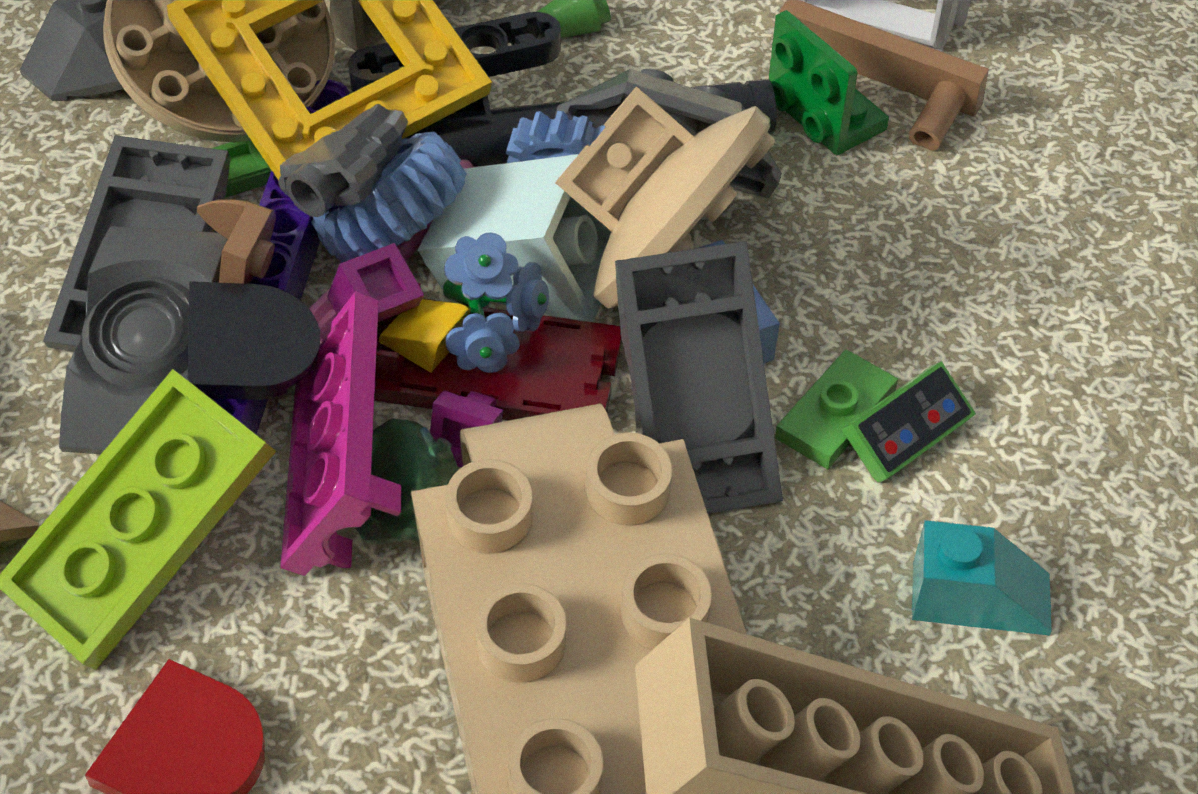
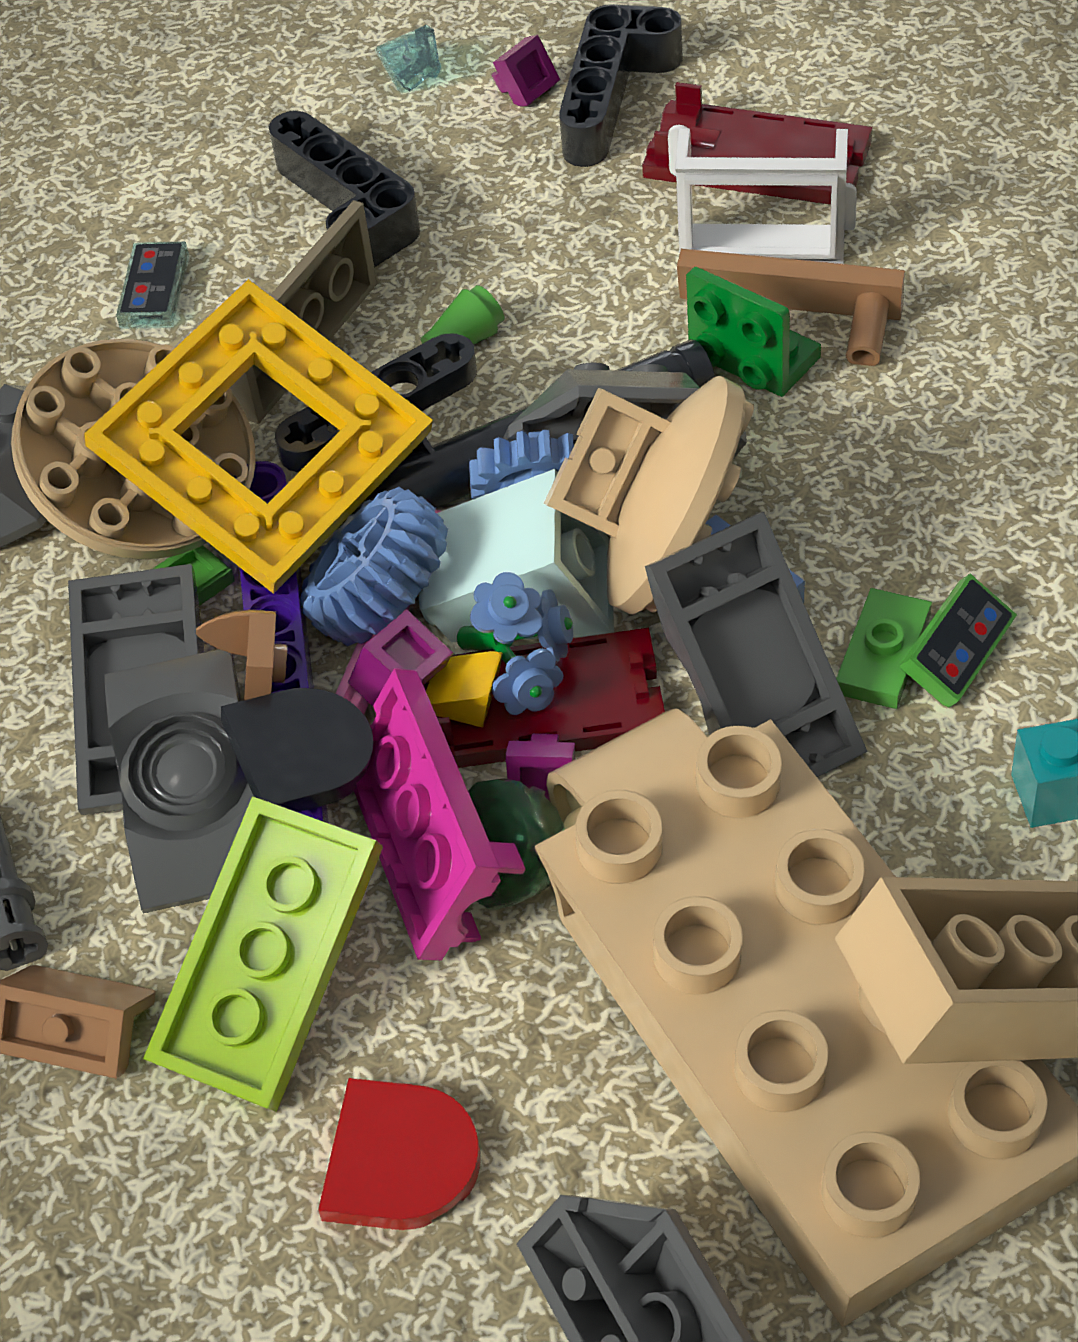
camera: 10 degrees left, 0 degrees up
(344, 163) = (324, 546): dark grey rock -> none

